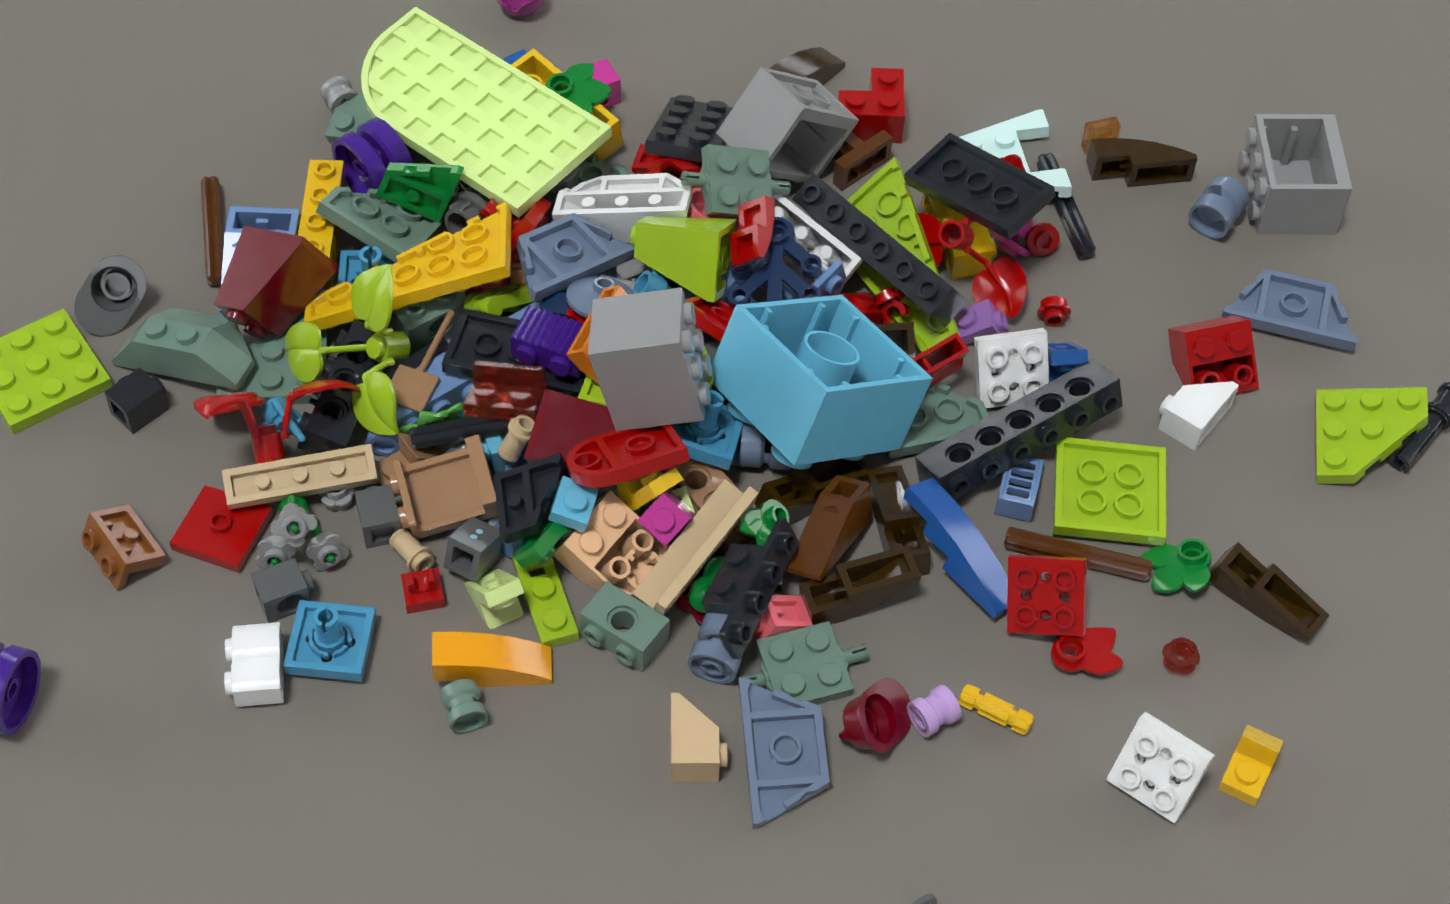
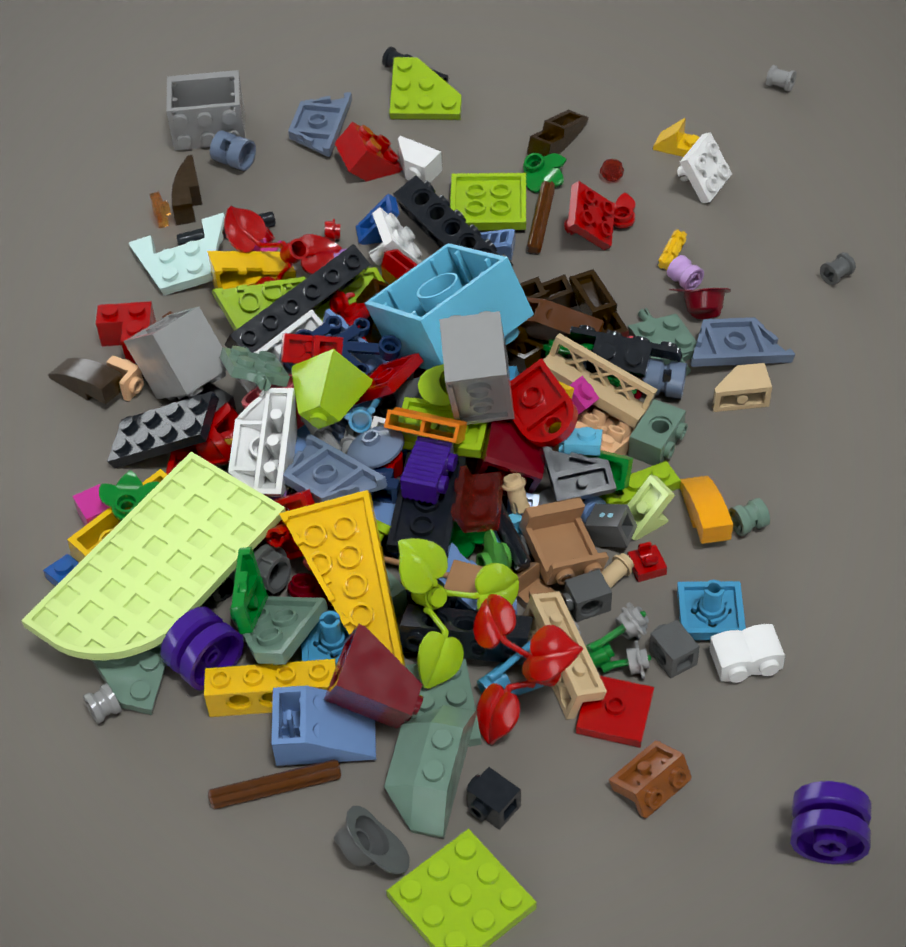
camera: 90 degrees left, 5 degrees down
(968, 554) = (554, 261): blue slope -> none
(979, 185) = (255, 230): black plate -> none

